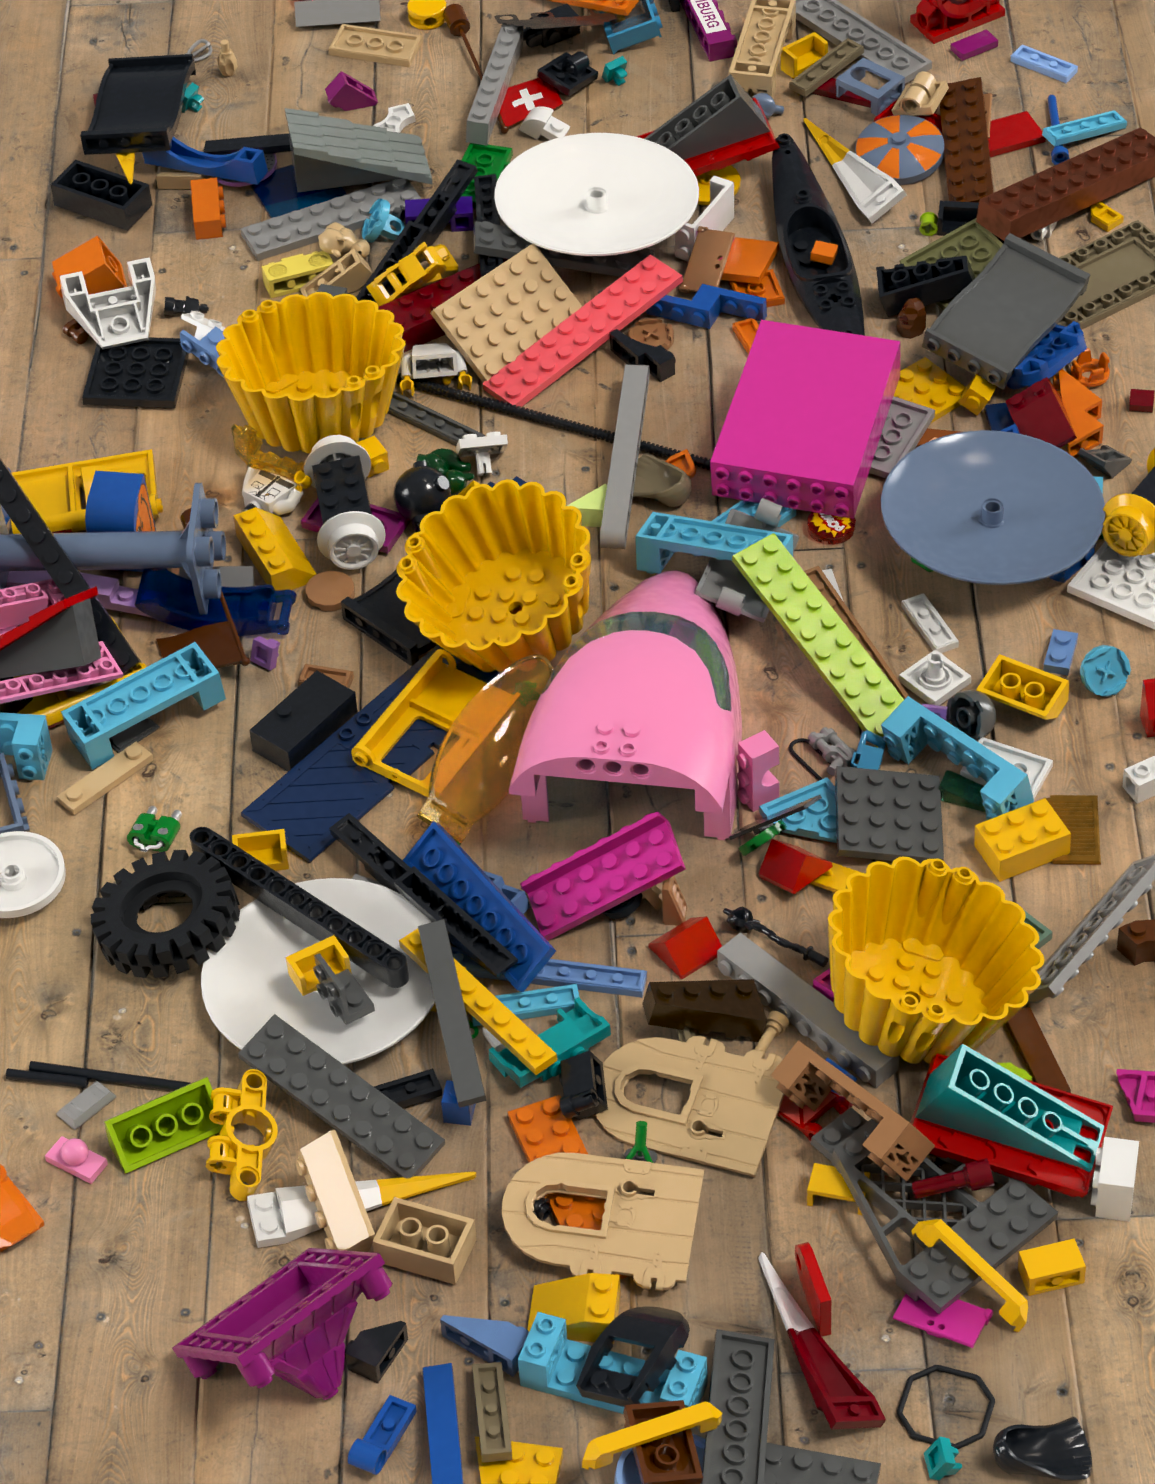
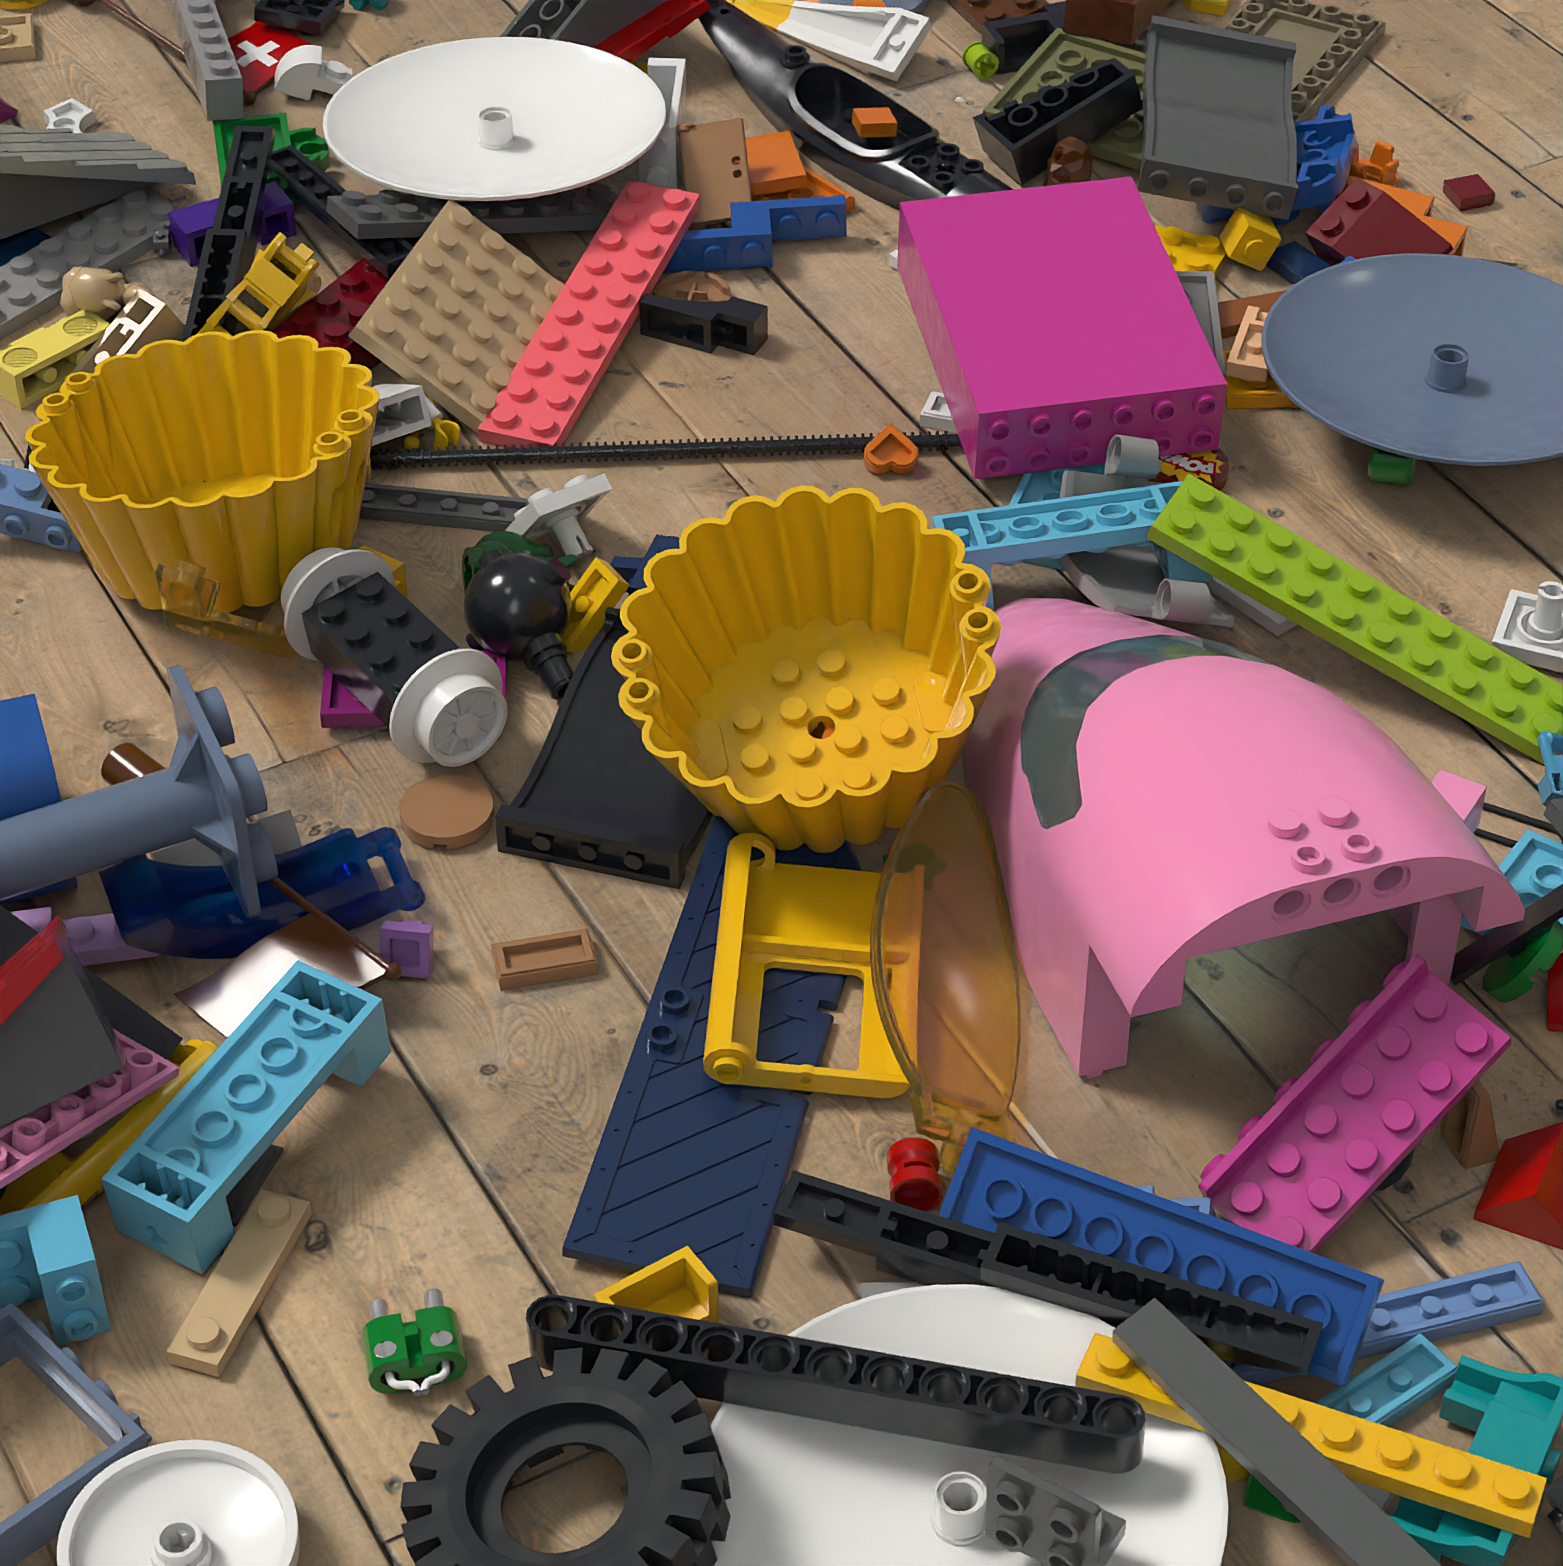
camera: 30 degrees left, 5 degrees down
(273, 491) = (250, 683): white torso -> none
(273, 549) = (312, 783): yellow slope -> none
(301, 963) = (948, 1492): yellow panel -> none
(303, 720) = (565, 1043): black brick -> none
(380, 222) = (146, 251): medium azure tile -> none
(410, 834) = (914, 1173): none -> red wheel
(624, 457) = (773, 411): light grey beam -> none
(661, 481) = (889, 474): dark tan hair -> none
(745, 332) = (846, 260): orange tile -> none
(837, 754) = (1502, 789): light grey piece -> none
(929, 623) = (1457, 560): white tile -> none

